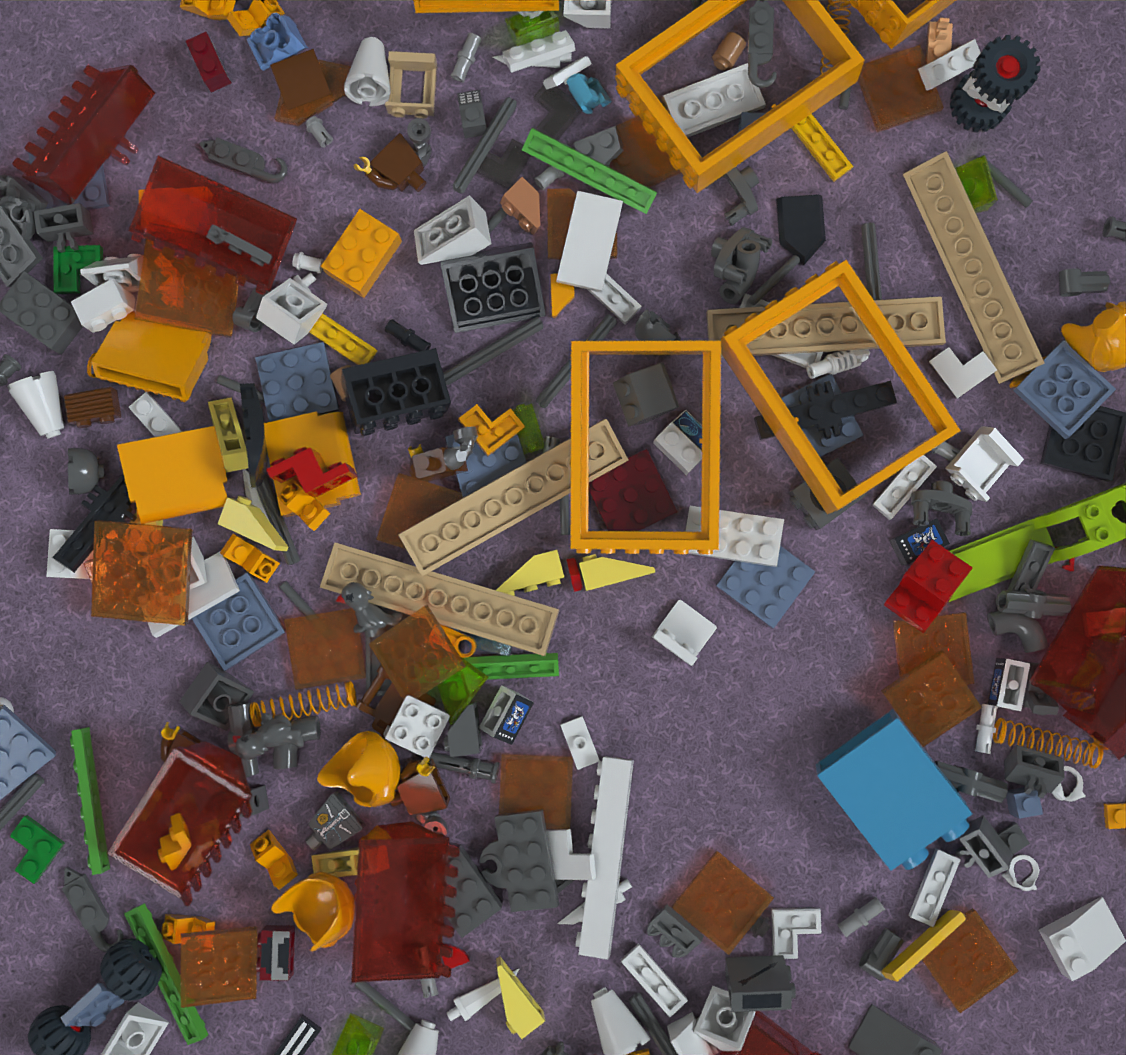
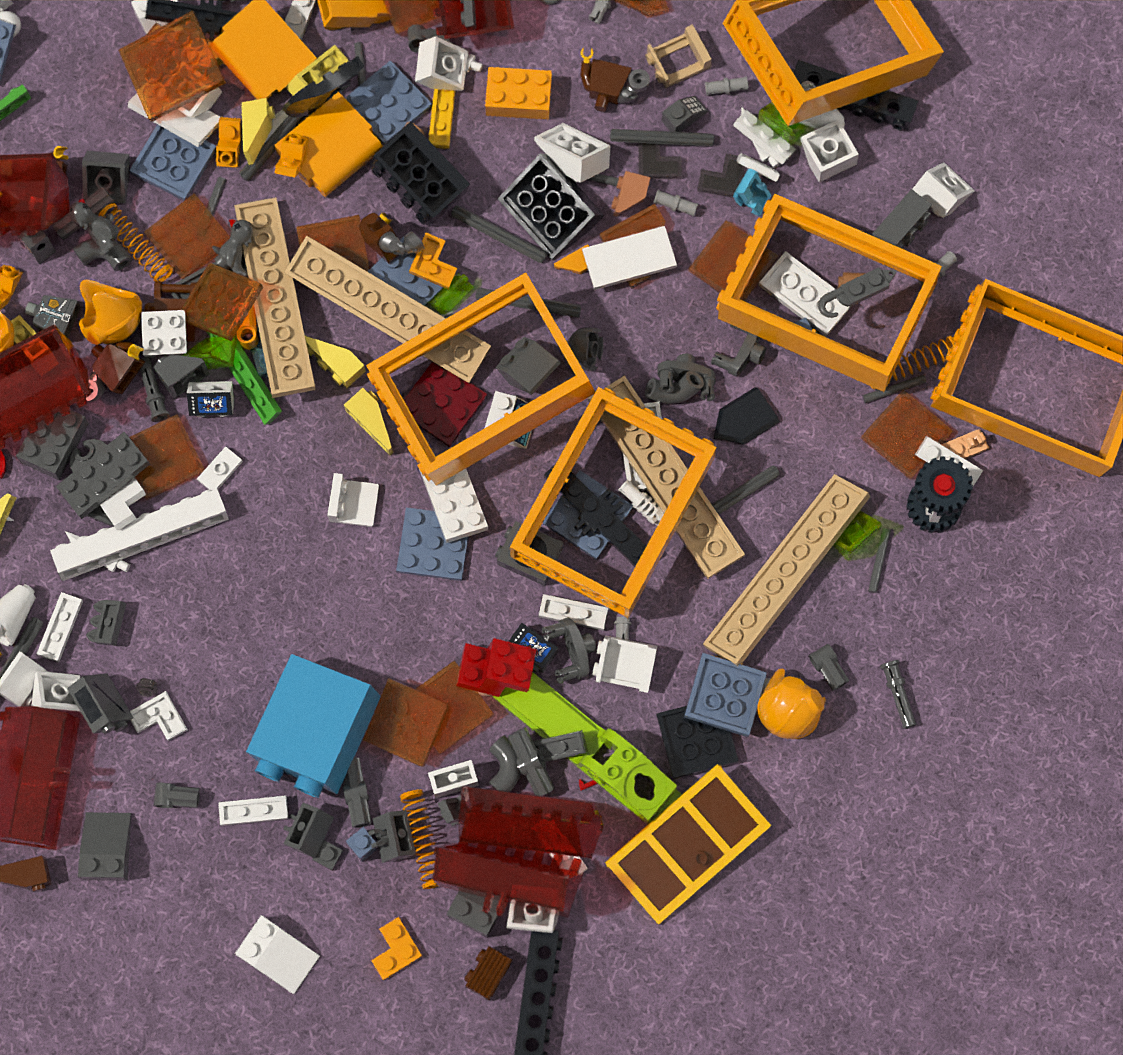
camera: 60 degrees right, 10 degrees down
(305, 262) = (488, 56): white pin -> none
(311, 471) = (319, 145): red bracket -> none
(369, 74) = (667, 19): white cone -> none
(407, 336) = (472, 163): black pin -> none
(574, 574) = (351, 391): red tile -> none
(589, 170) = (686, 226): bright green plate -> none
(601, 146) = (708, 226): dark grey wing -> none
(617, 300) = (596, 306): white plate -> none
(722, 902) = (151, 647): clear orange plate -> none
(774, 280) = (684, 418): dark grey bar -> none
(822, 147) = (820, 399): yellow tile -> none
(861, 917) = (197, 764): light grey pin -> none
(923, 945) = (200, 820): yellow tile -> none
(961, 377) = (691, 609): white tile -> none
(969, 963) = (207, 868): clear orange plate -> none
(986, 728) = (407, 784): white pin -> none
(1029, 883) = (298, 889): white piece -> none
(1077, 791) = (395, 887): white piece -> none

